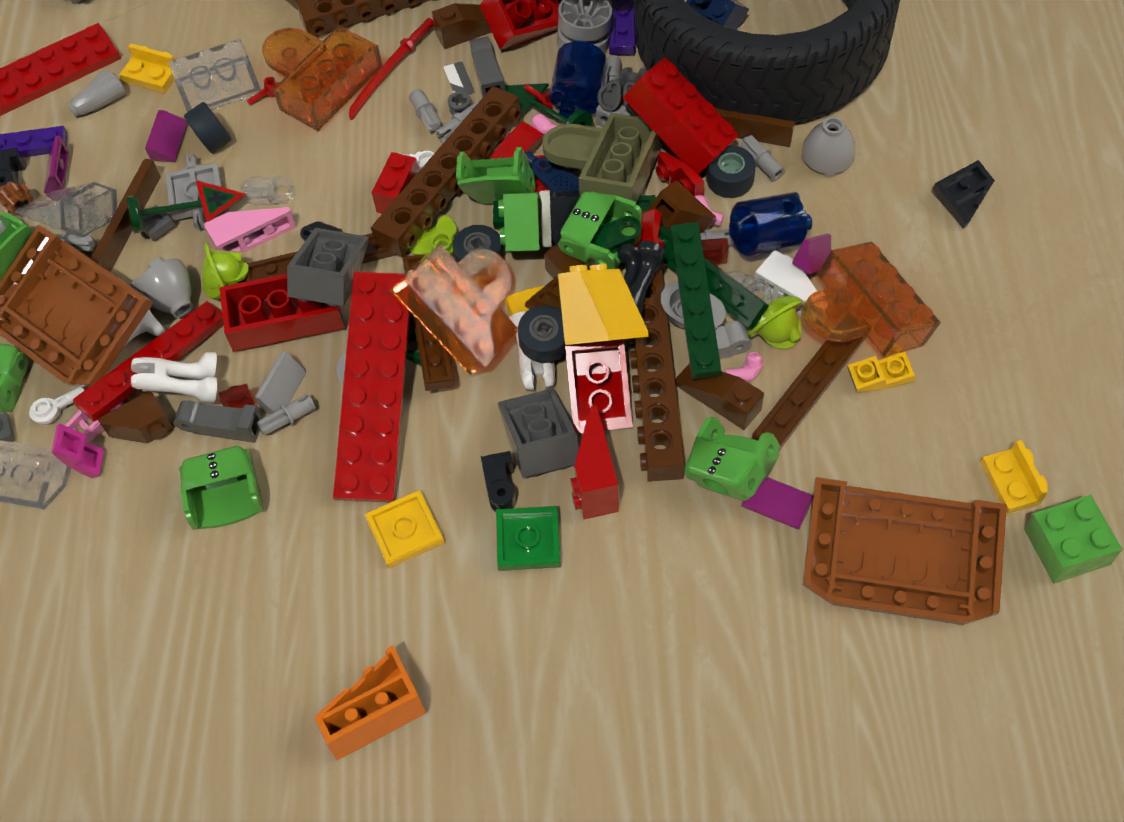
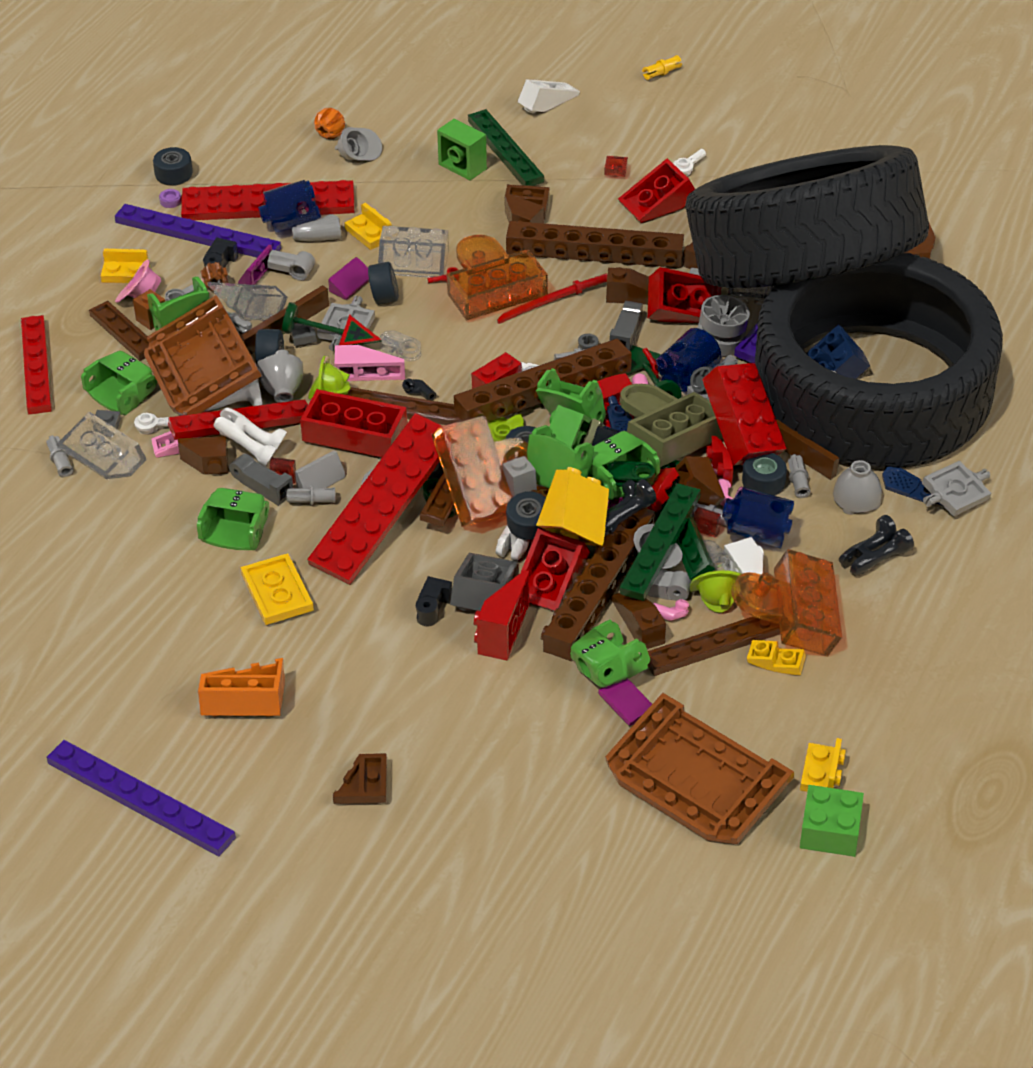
camera: 25 degrees right, 15 degrees down
(51, 81) = (282, 206): none -> clear blue cylinder
(75, 452) = (148, 450): dark pink slope -> none
(100, 144) = (296, 265): none -> light grey piece
(130, 257) = (268, 343): none -> black wheel
(321, 551) = (277, 589): none -> yellow plate
(326, 267) = (397, 401): dark grey slope -> none
(404, 528) = (344, 602): yellow tile -> none
(425, 110) = (557, 336): light grey axle -> none
(459, 78) = (602, 327): dark grey sticker -> none
(508, 293) = (520, 475): none -> light grey brick
(527, 538) = (427, 644): green plate -> none
(536, 262) = (551, 455): none -> bright green piece
(573, 749) = (365, 781): none -> reddish brown wing
(813, 253) = (775, 546): magenta slope -> none
(868, 120) = (904, 483): none -> dark blue piece
(886, 181) = (861, 555): none -> black piece
(917, 103) = (956, 488): none -> light grey plate
(964, 191) = (946, 565): black wing -> none

